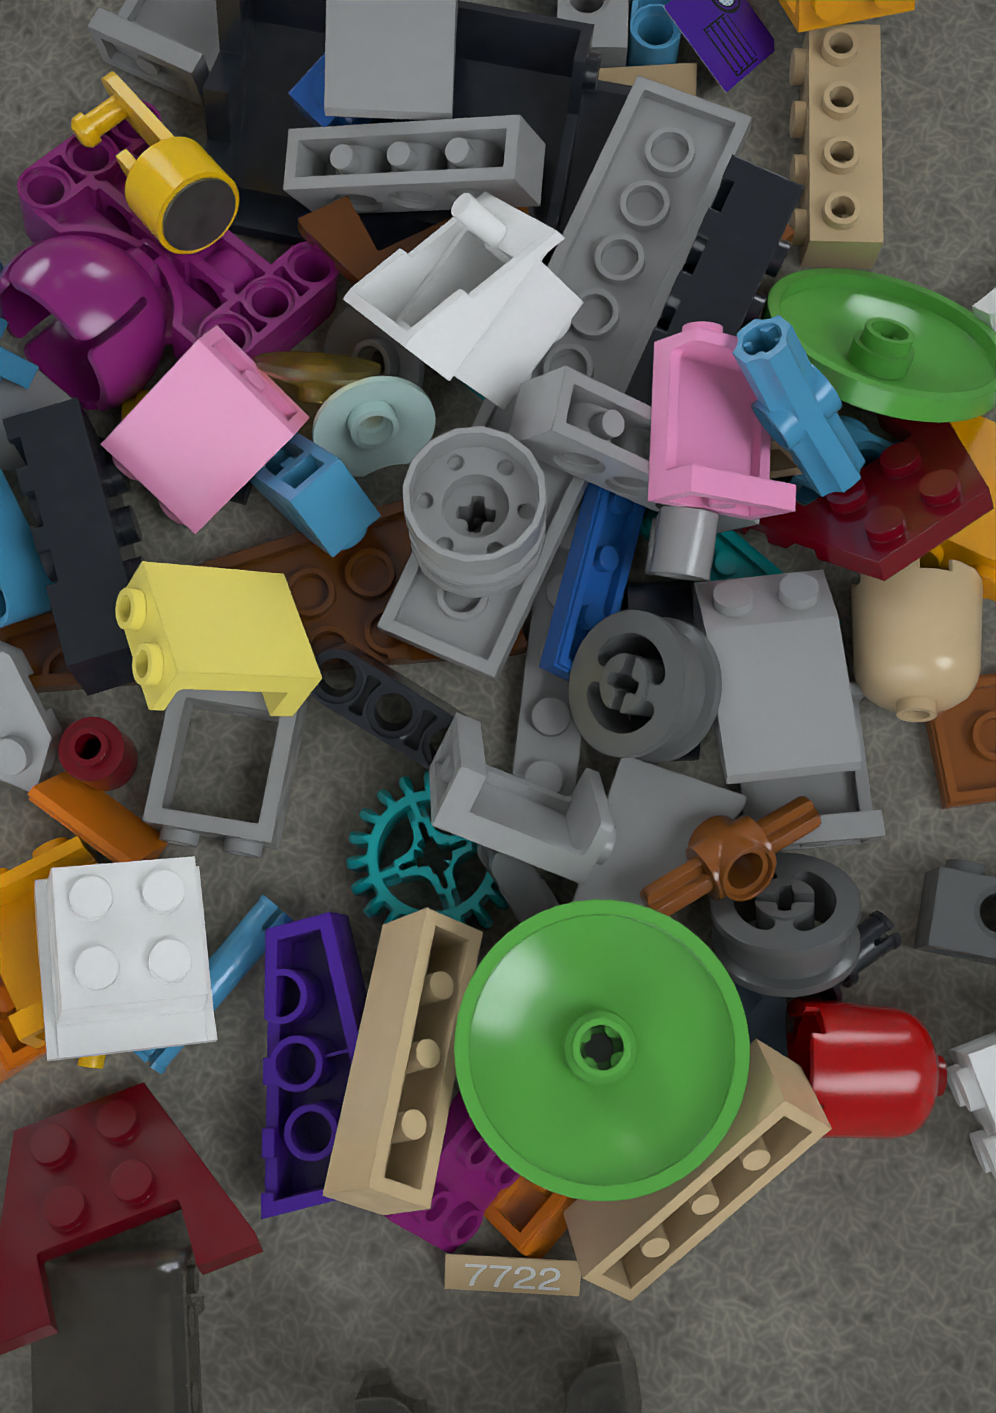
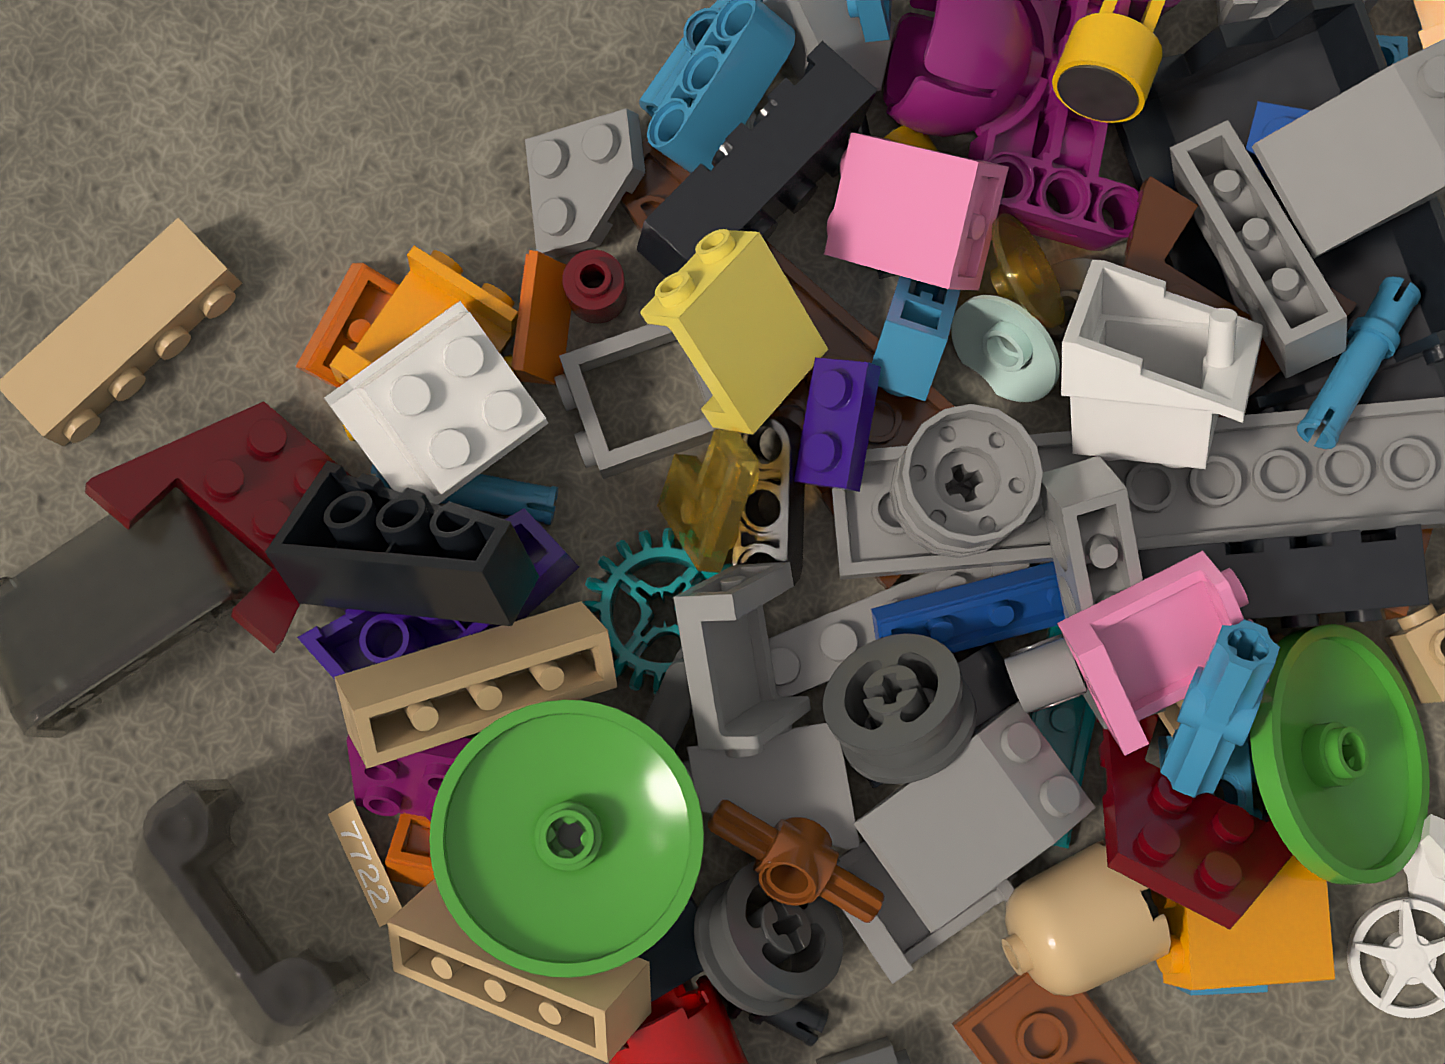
camera: 60 degrees right, 5 degrees up
(240, 1067) = (399, 553): none -> black wedge
(356, 601) = (837, 424): none -> dark purple plate
(362, 755) = (709, 498): none -> clear yellow plate
(551, 122) = (1370, 341): none -> dark azure pin

